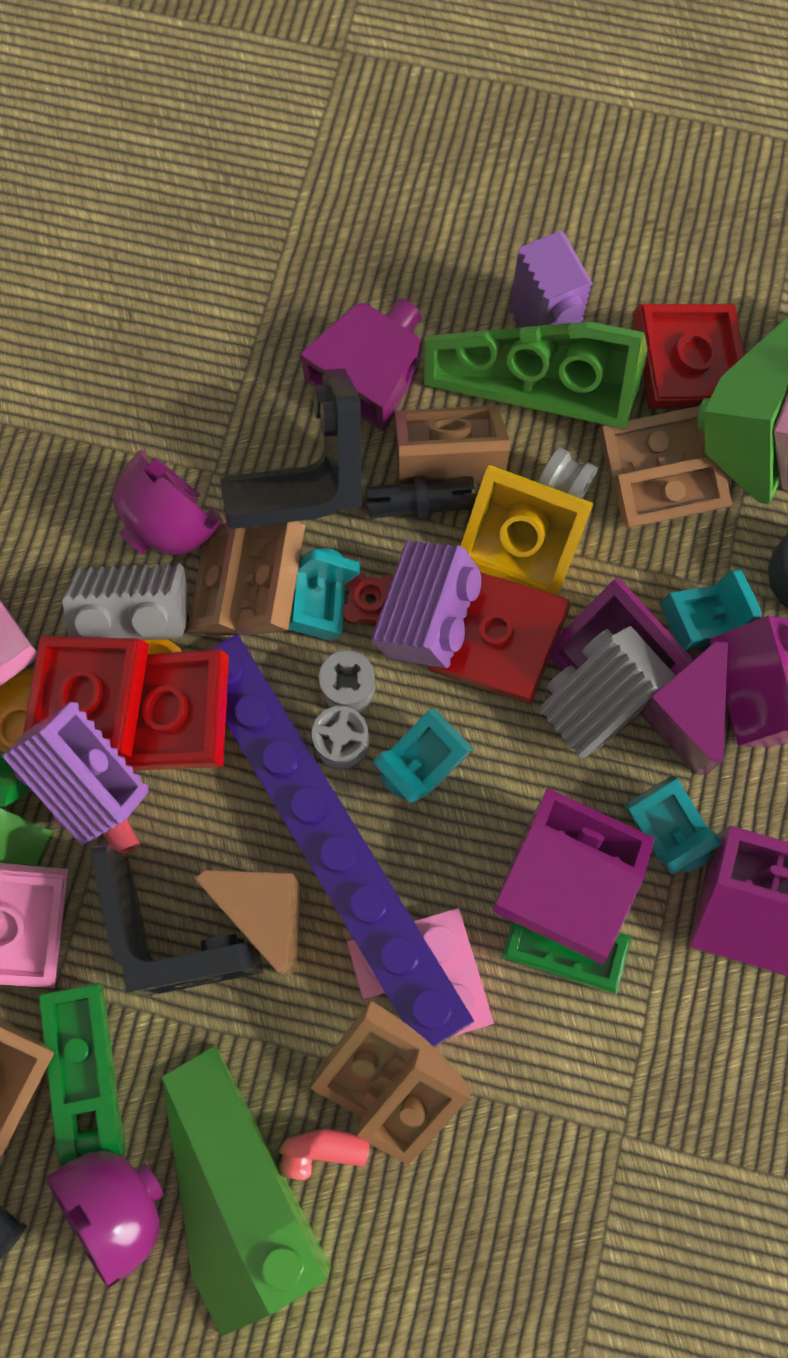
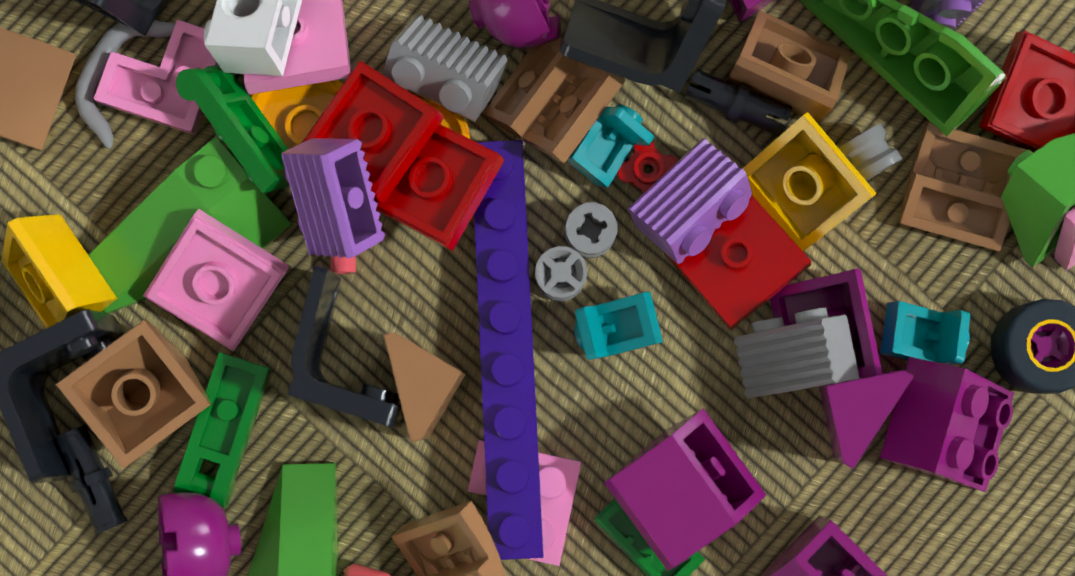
camera: 25 degrees right, 10 degrees up
(679, 831) = (790, 492): teal bracket -> none

